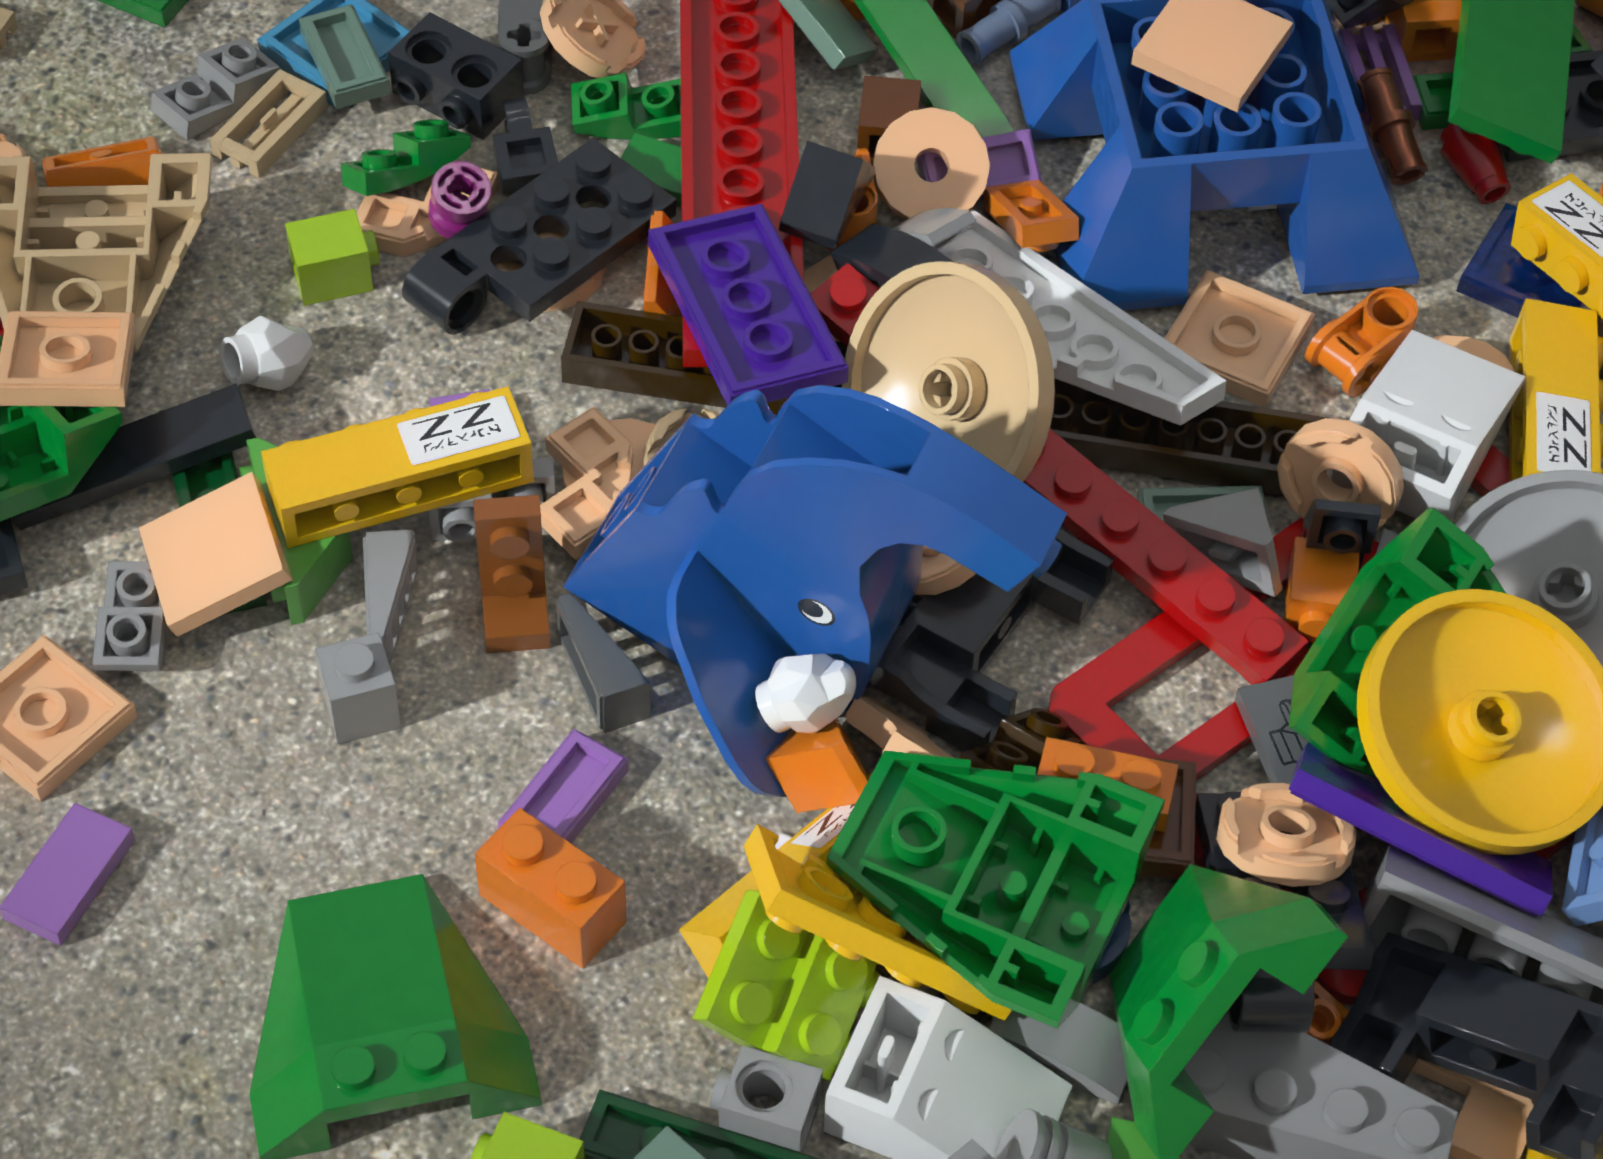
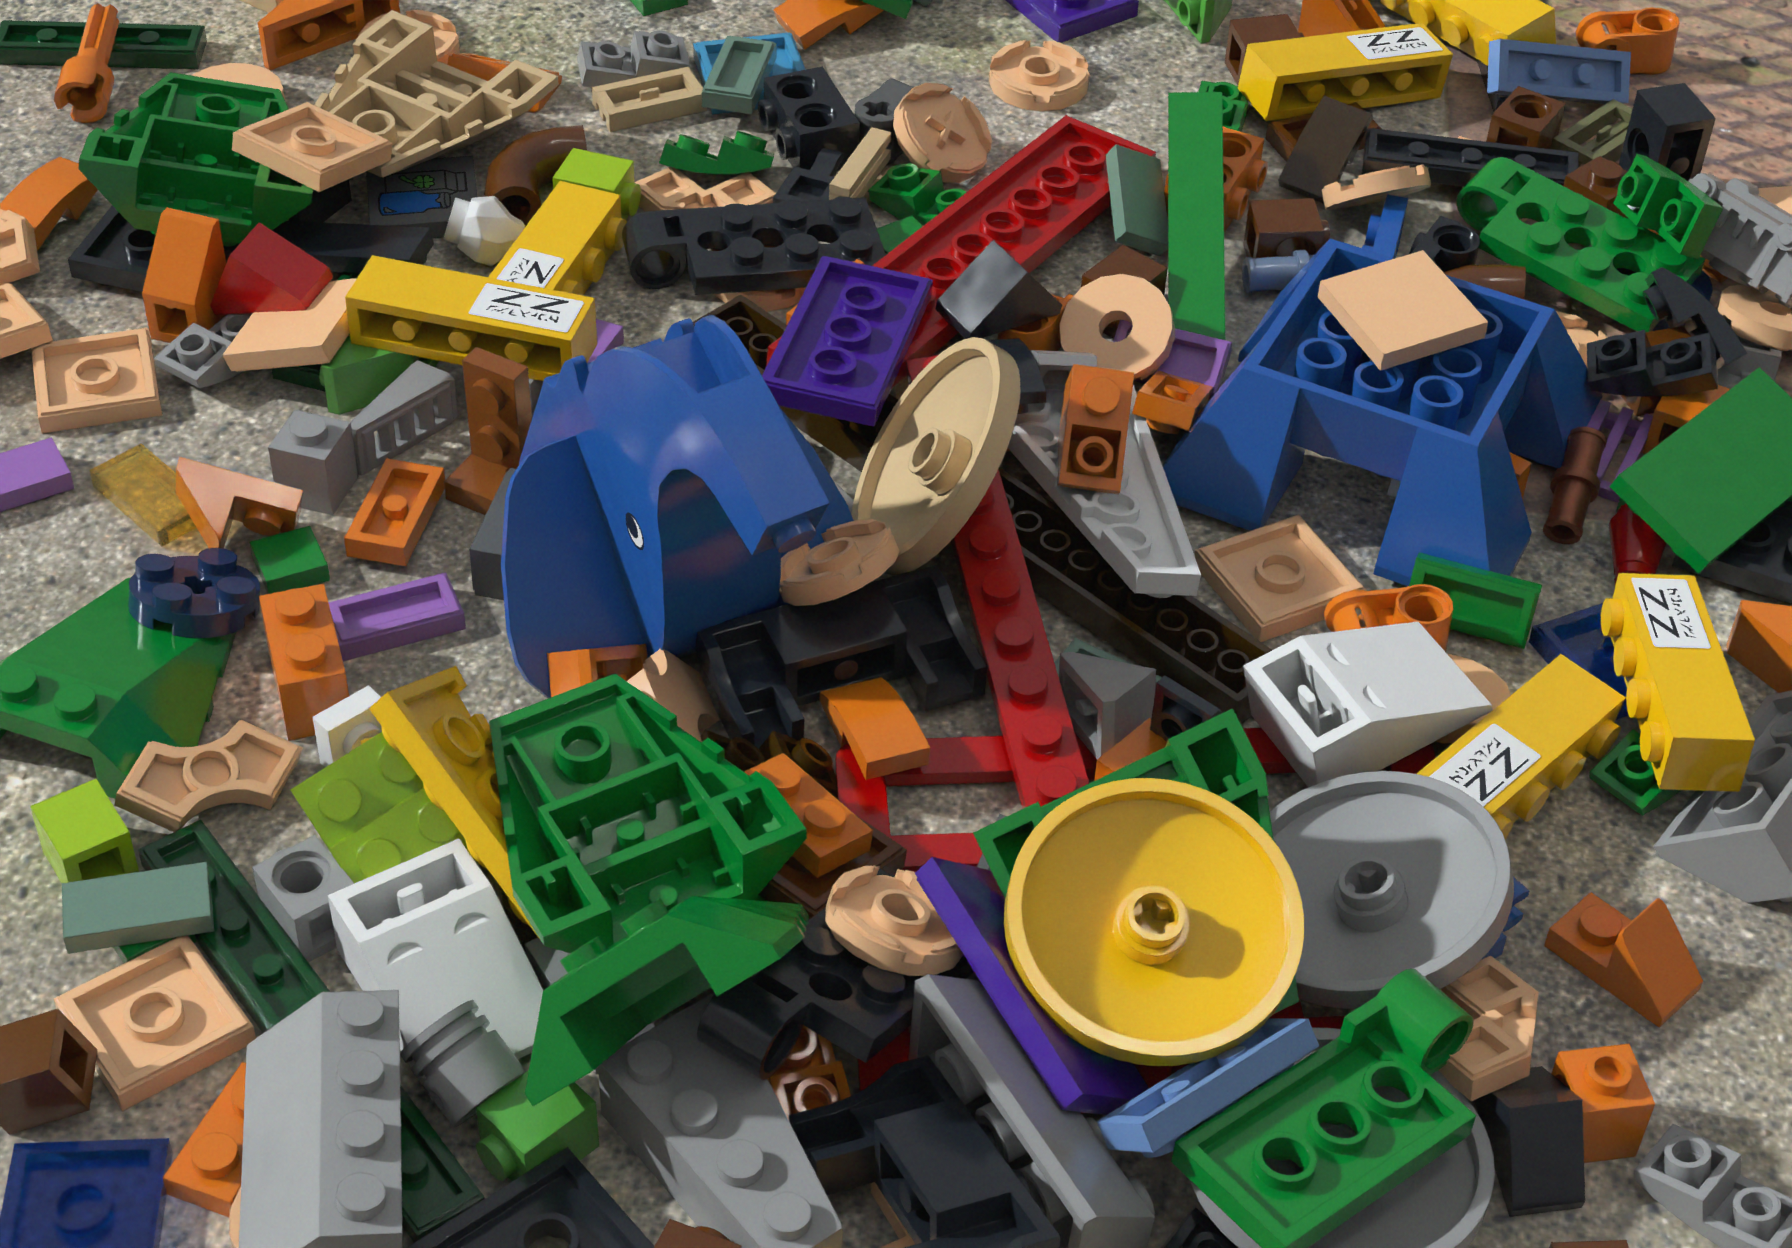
camera: 35 degrees right, 10 degrees down
(55, 565) = (183, 274): none -> orange slope
(146, 522) = (268, 276): none -> red slope
(176, 353) = (421, 193): none -> dark grey tile
(223, 805) = (144, 492): none -> clear yellow tile
(241, 259) = (529, 165): none -> reddish brown cylinder
(326, 778) = (221, 495): none -> orange slope
(365, 340) = (566, 240): none -> yellow brick
(412, 896) = (194, 593): none -> dark blue plate
(419, 797) = (289, 560): none -> green tile
(449, 208) = (716, 181): magenta wheel -> none
(472, 694) = (395, 512): none -> orange plate
(557, 106) = (863, 167): none -> tan tile
(557, 1069) = (179, 782): none -> light nougat tile
(654, 929) = (345, 724): none -> white plate
(805, 692) = (599, 605): white rock -> none
(1039, 271) = (1094, 428): none -> orange slope
(1061, 657) = (876, 727): none -> orange slope
(1345, 448) = (1244, 665): light nougat tile -> none
(1427, 272) = (1483, 600): none -> green tile

